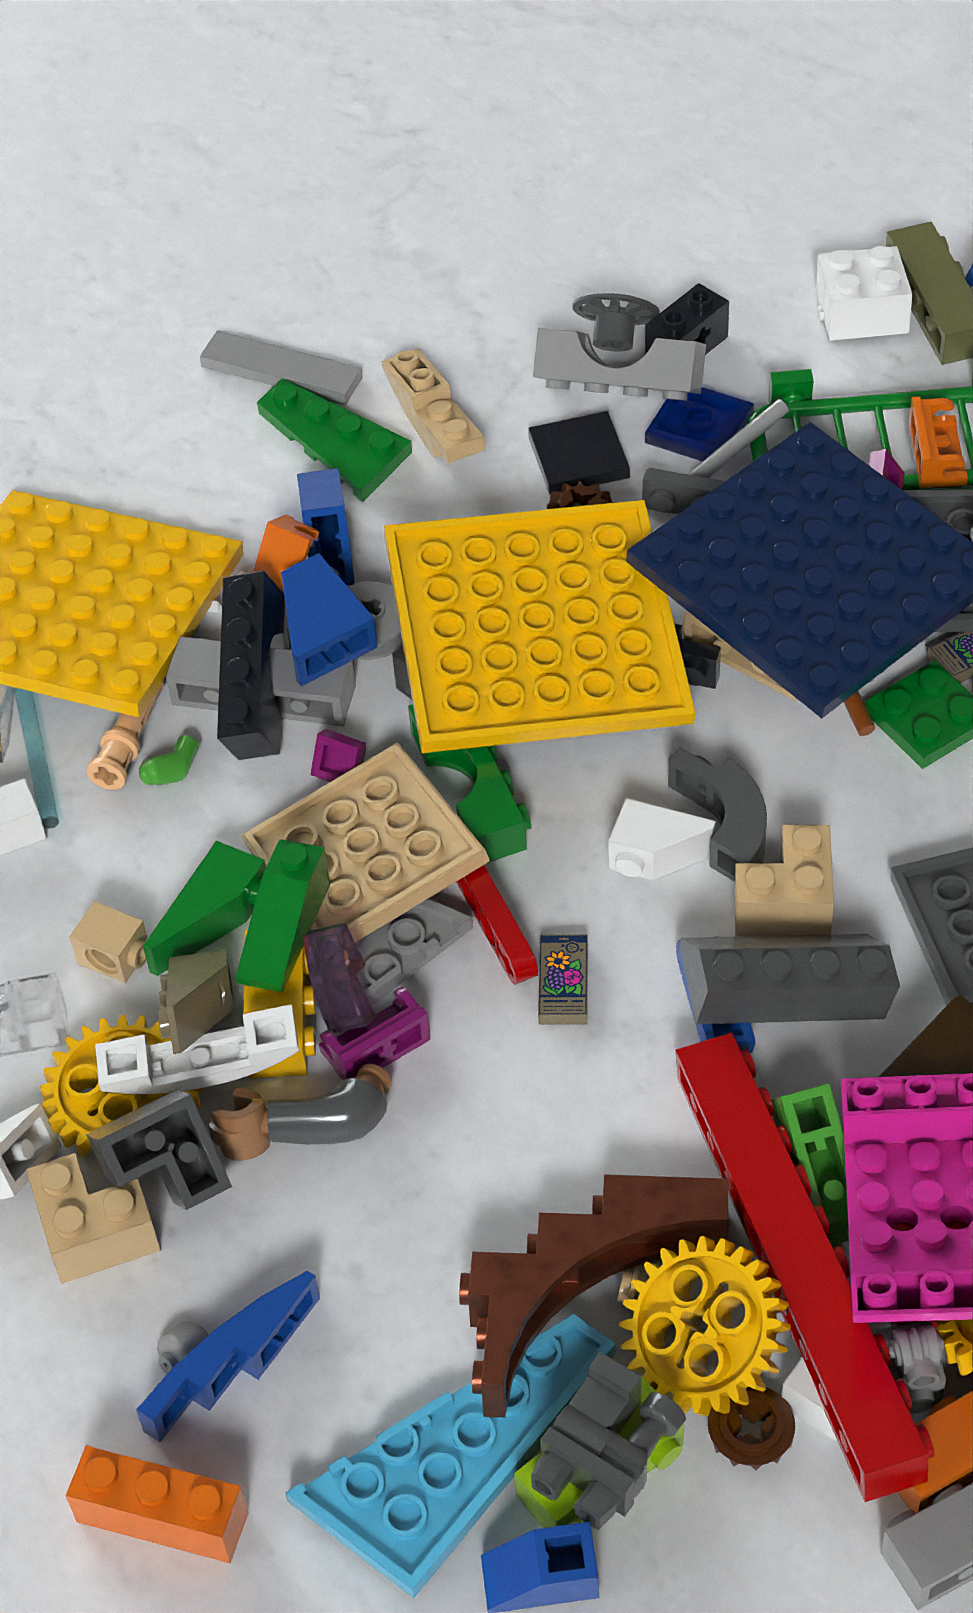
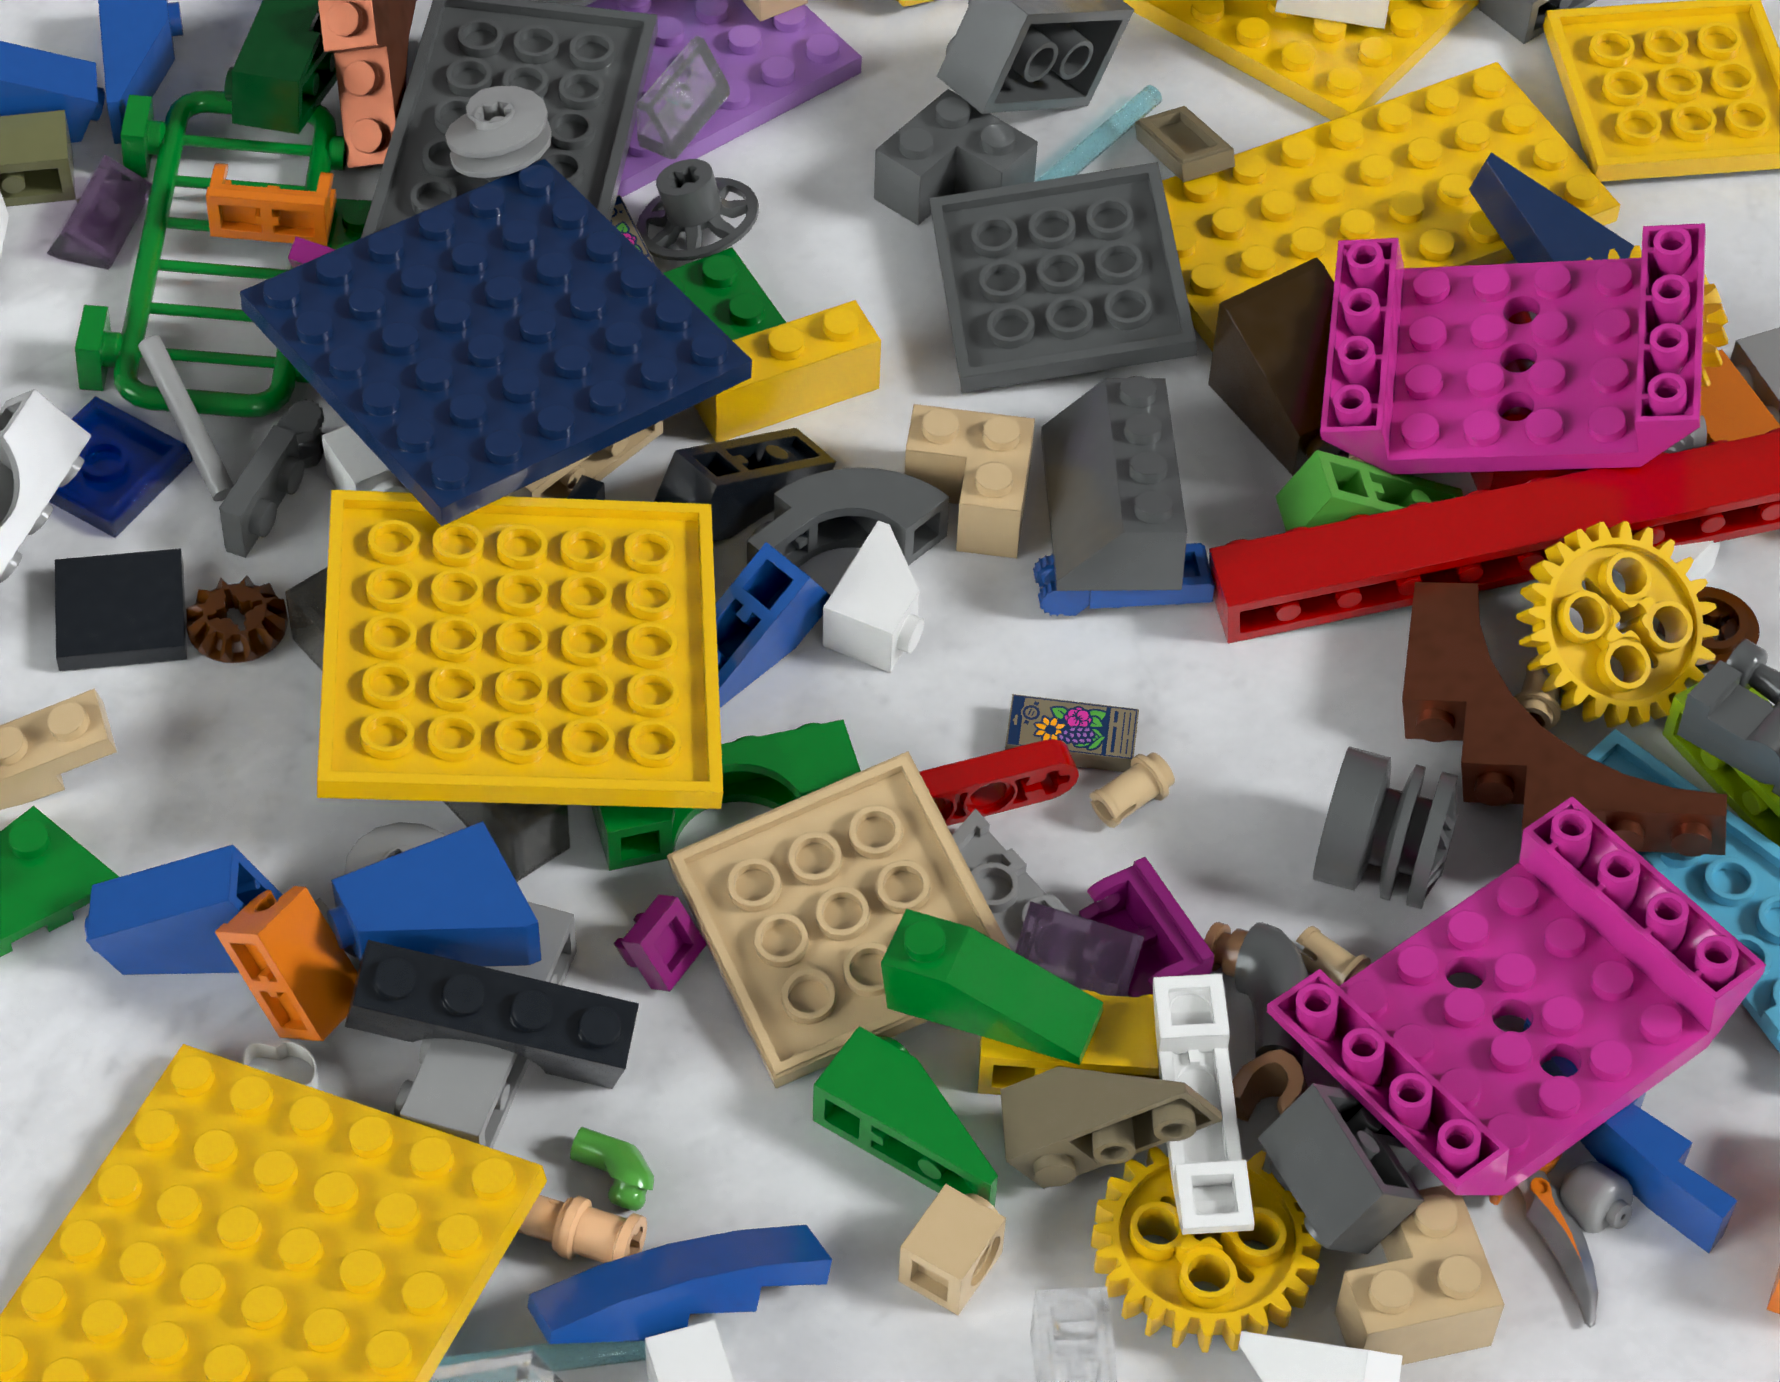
camera: 90 degrees left, 0 degrees up
(74, 797) = (667, 1283): none -> blue slope
(171, 1311) = (1562, 1236): none -> flat silver piece
(266, 1187) = (1576, 941): none -> dark pink slope
(360, 1165) = (1329, 956): none -> tan pin
(473, 1166) = (1386, 827): none -> dark grey wheel
(520, 1024) = (1144, 780): none -> tan pin
(611, 767) = (763, 618): none -> blue slope
(739, 730) = (741, 476): none -> black slope
(869, 763) = (798, 371): none -> yellow brick
(922, 372) = (101, 216): none -> clear purple slope

